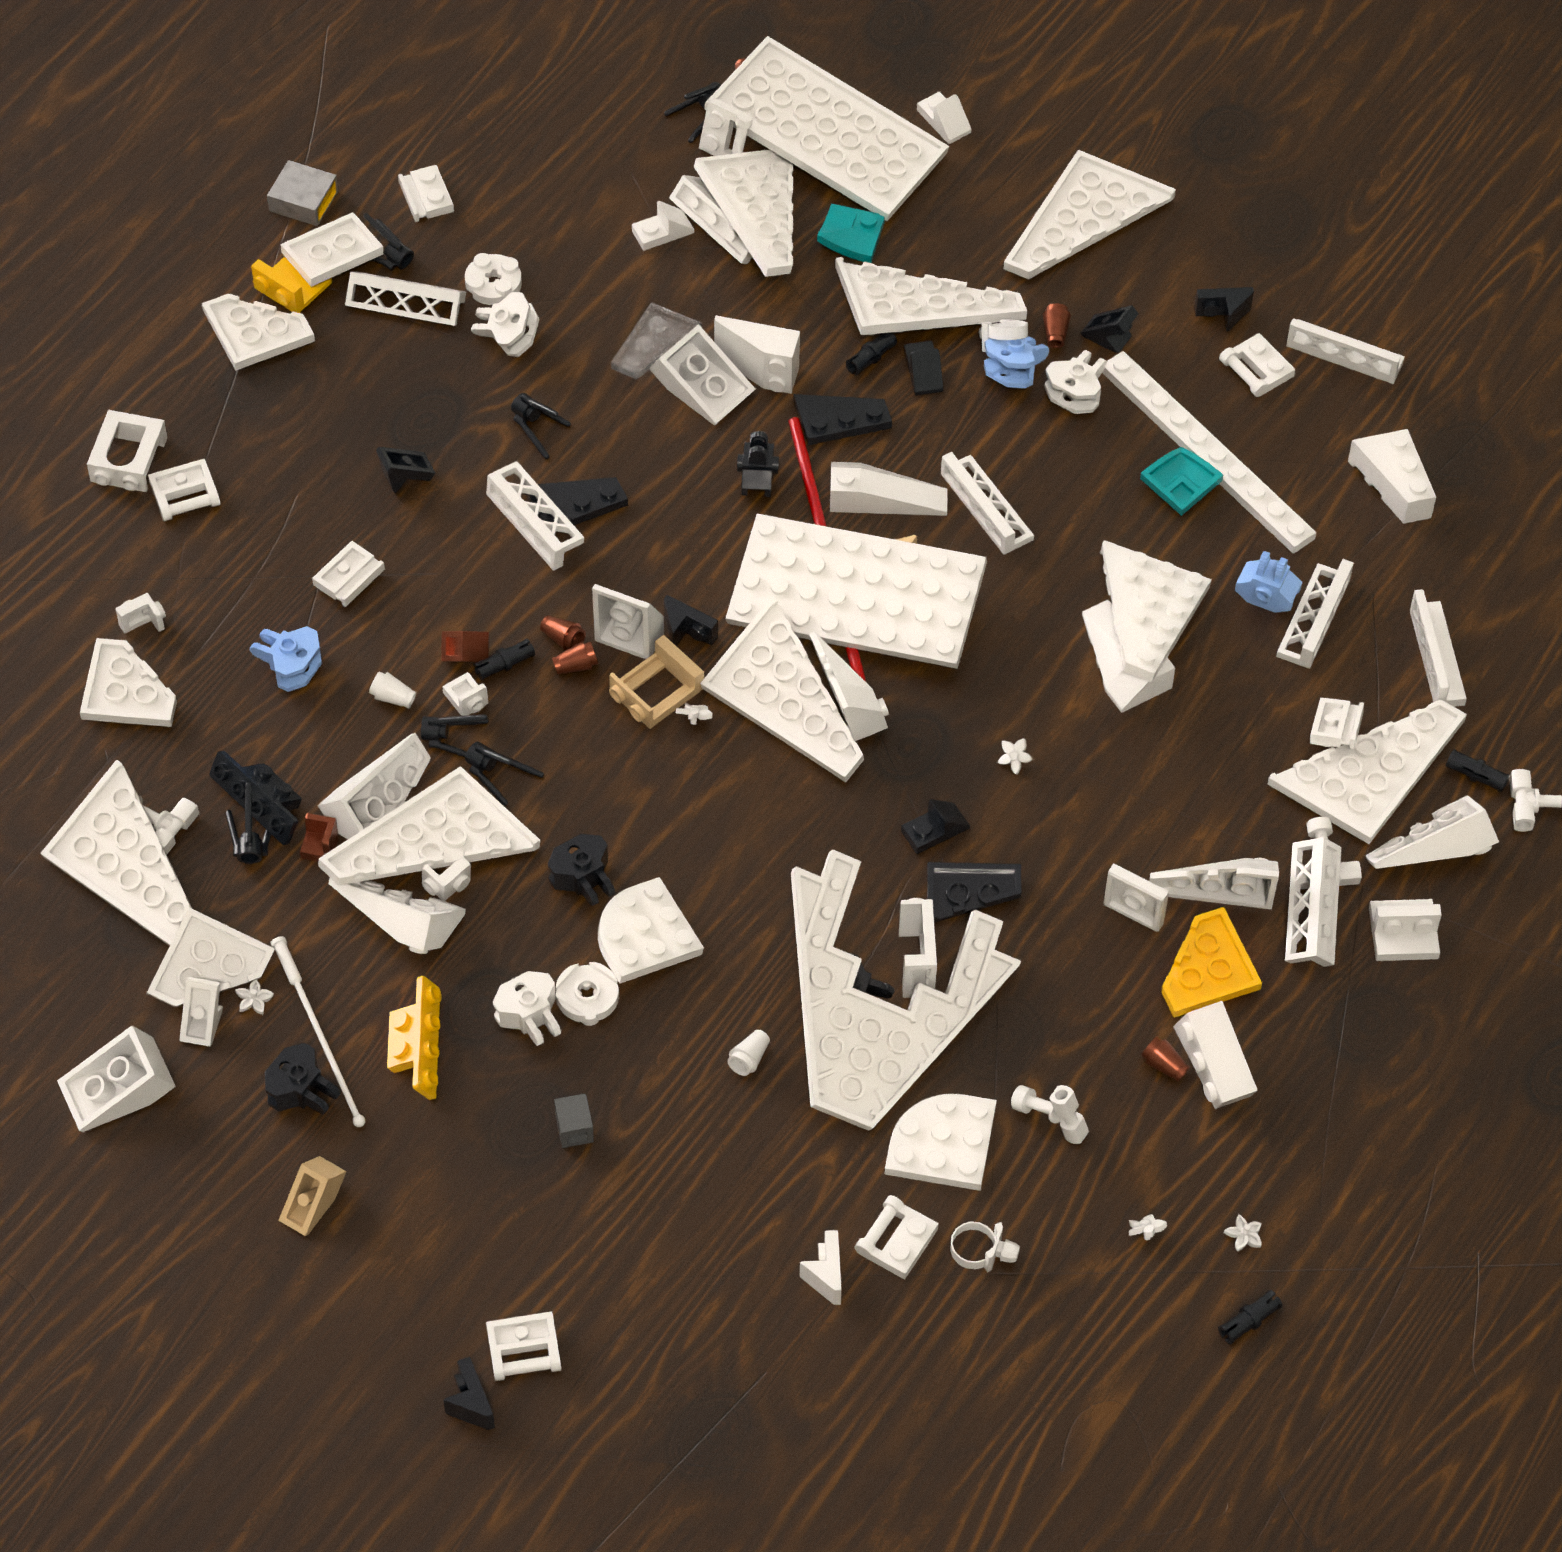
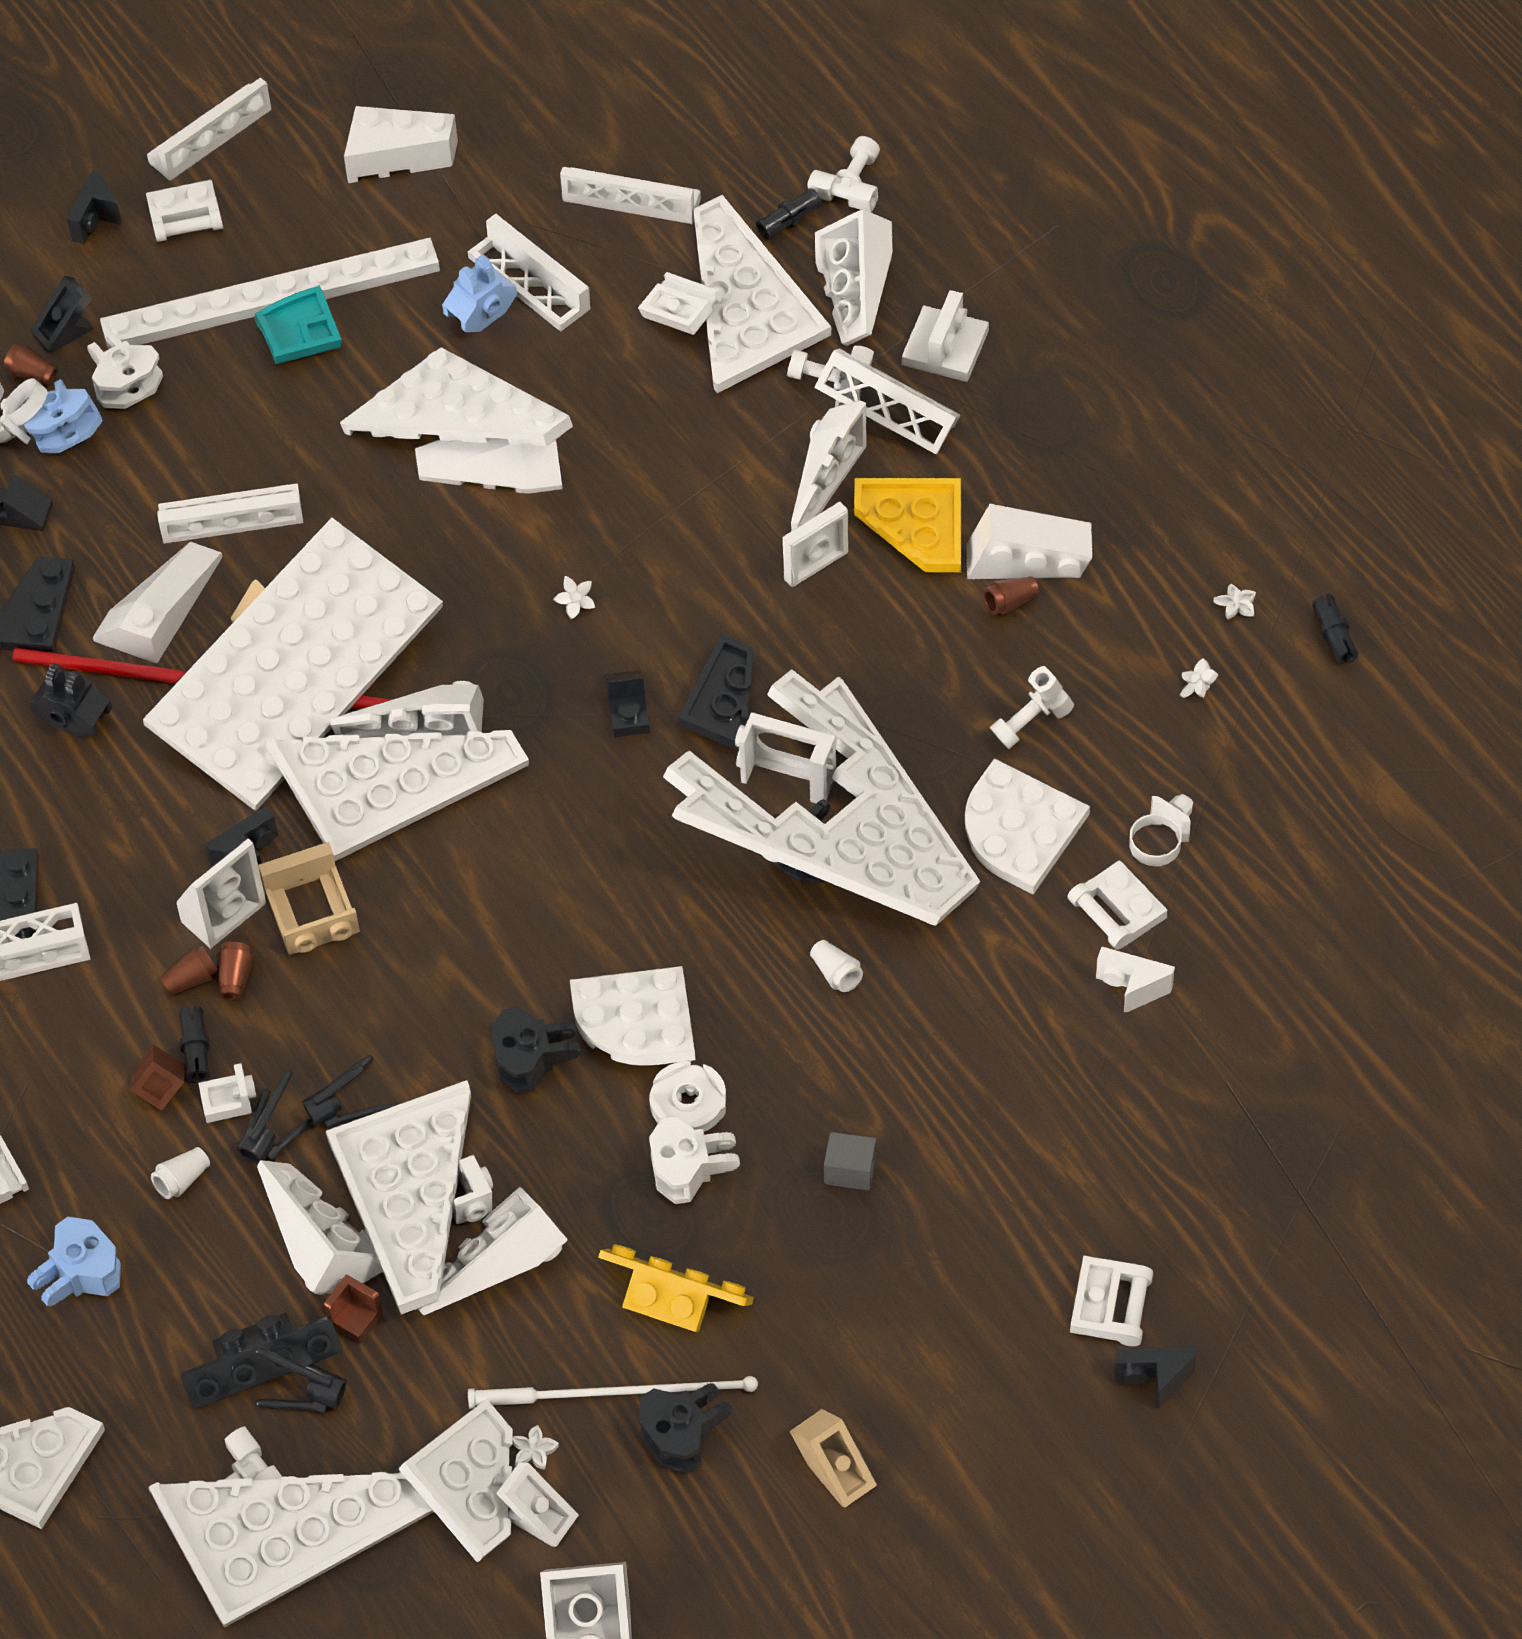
camera: 65 degrees left, 0 degrees up
(694, 712) = (367, 874): white plant -> none

